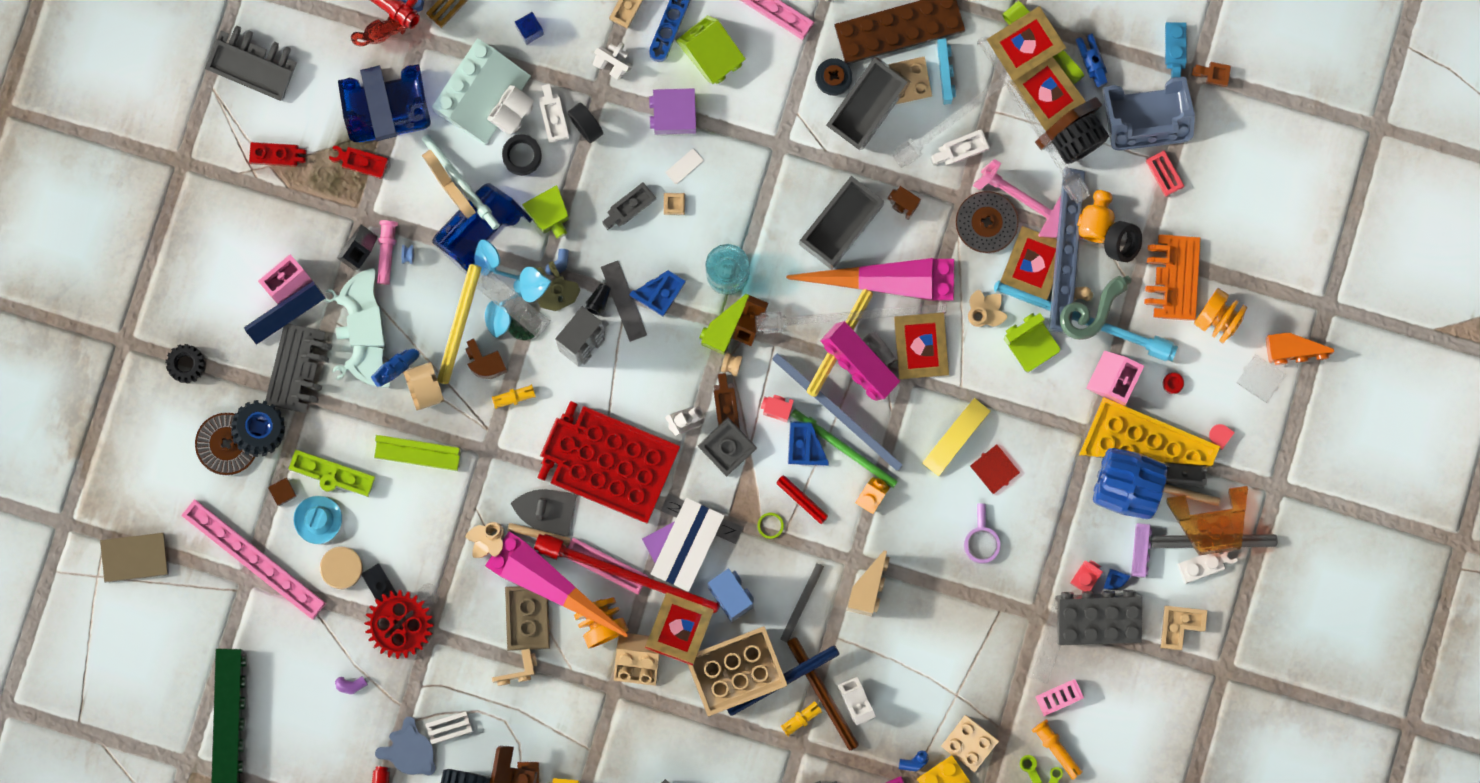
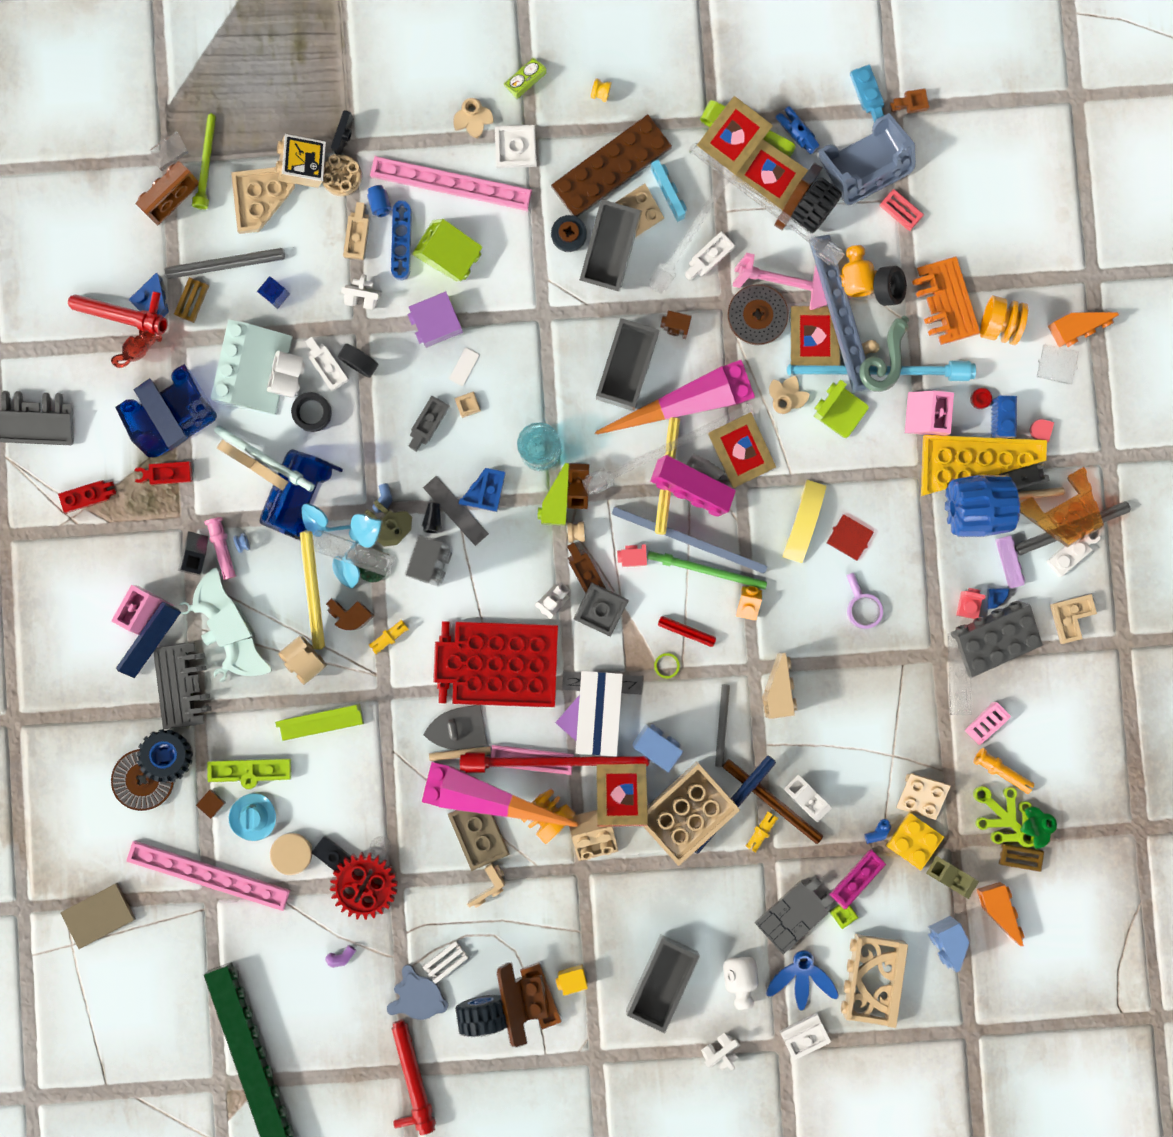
camera: 20 degrees left, 5 degrees up
(176, 354) = (64, 724): black tyre -> none
(394, 367) = (268, 652): blue hinge -> none
(484, 541) = (414, 780): tan plate -> none
(548, 212) = (355, 455): lime torso -> none
(804, 445) = (670, 581): blue wing -> none
(1187, 408) = (1004, 417): none -> blue brick

